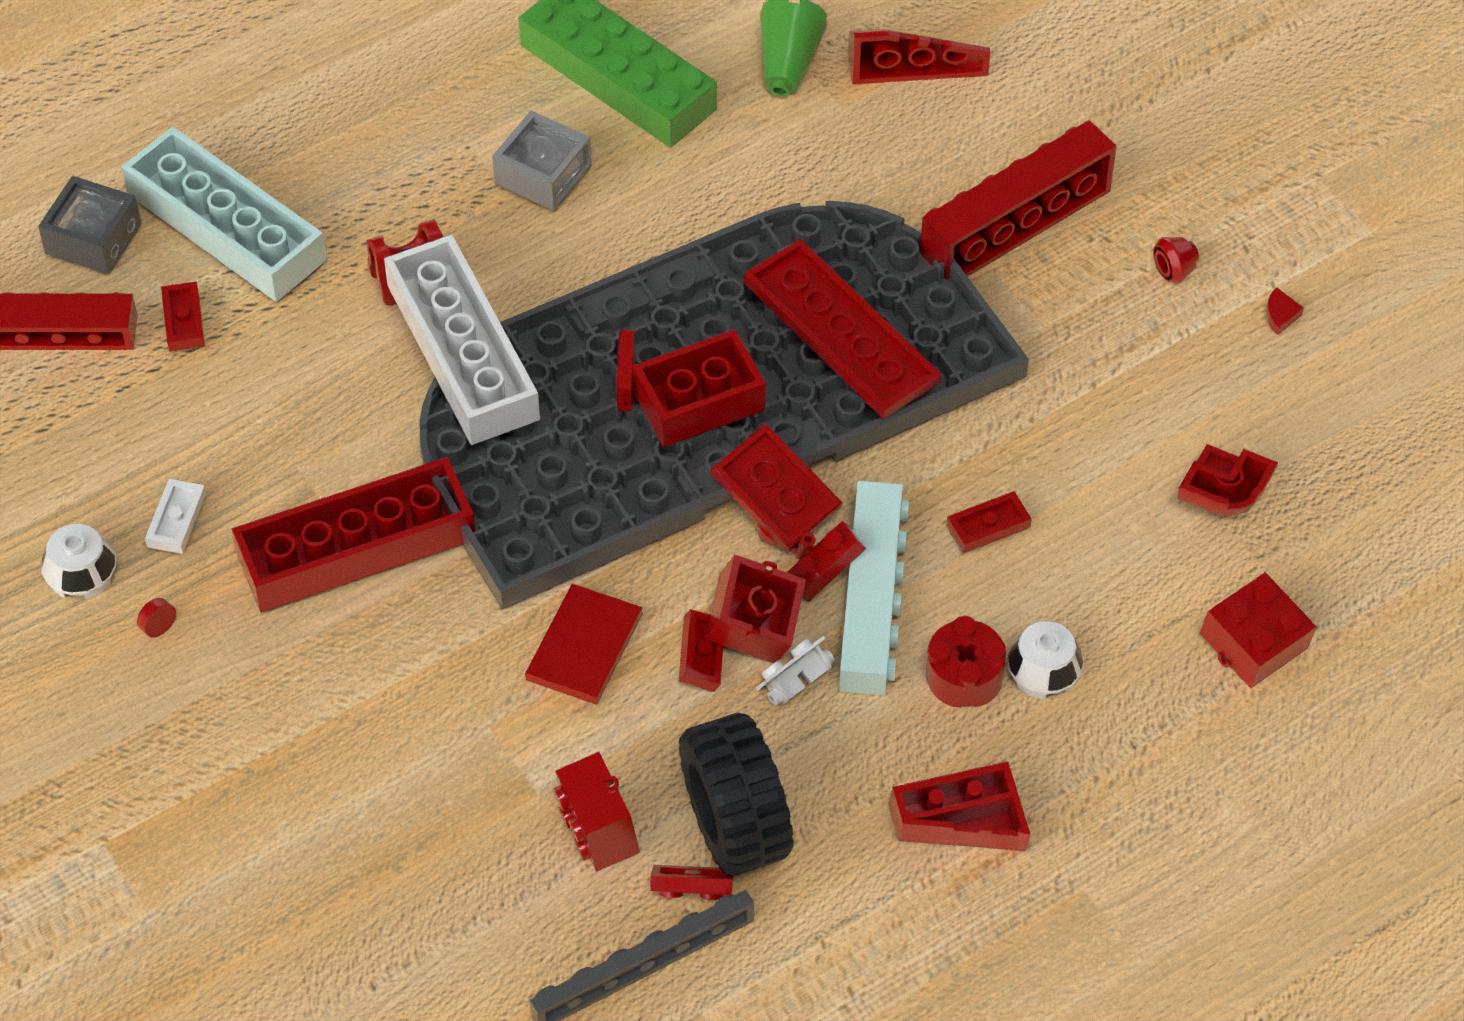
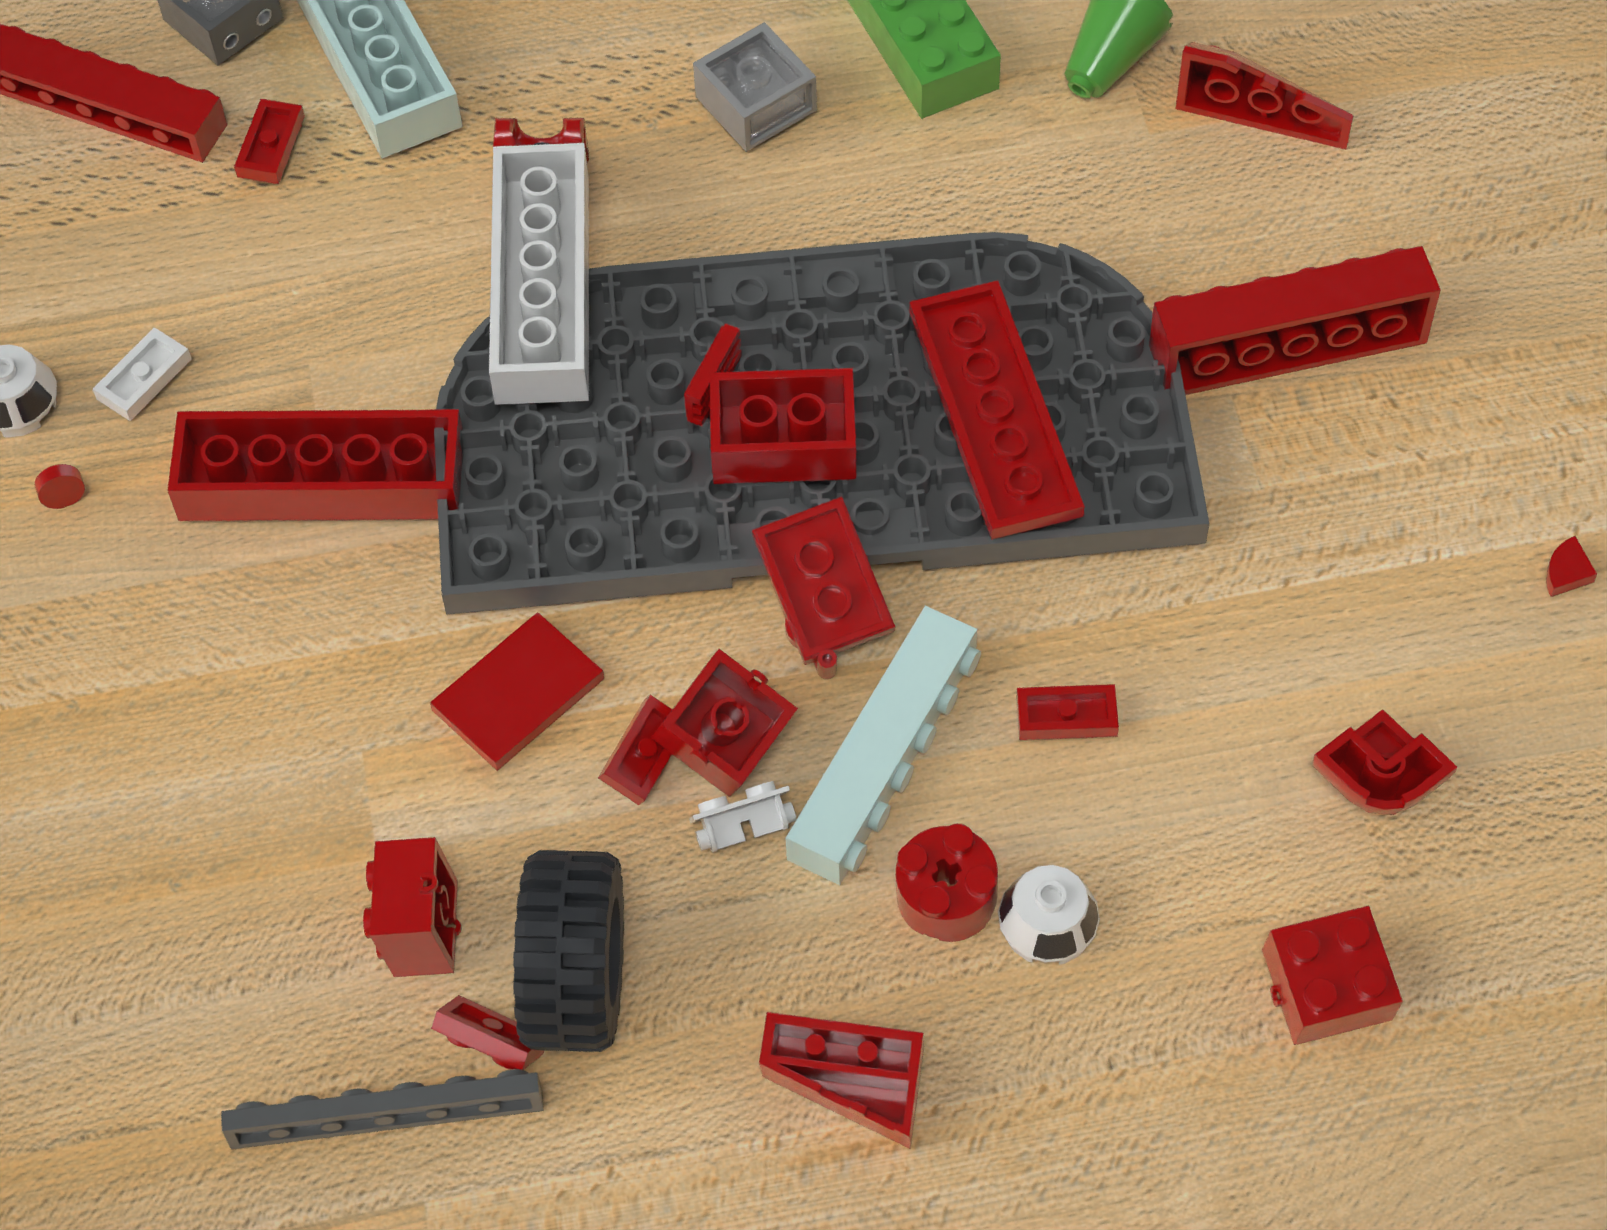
camera: 25 degrees right, 5 degrees up
(828, 559) = (842, 691): red plate -> none
(1175, 258) = (1462, 455): red cone -> none

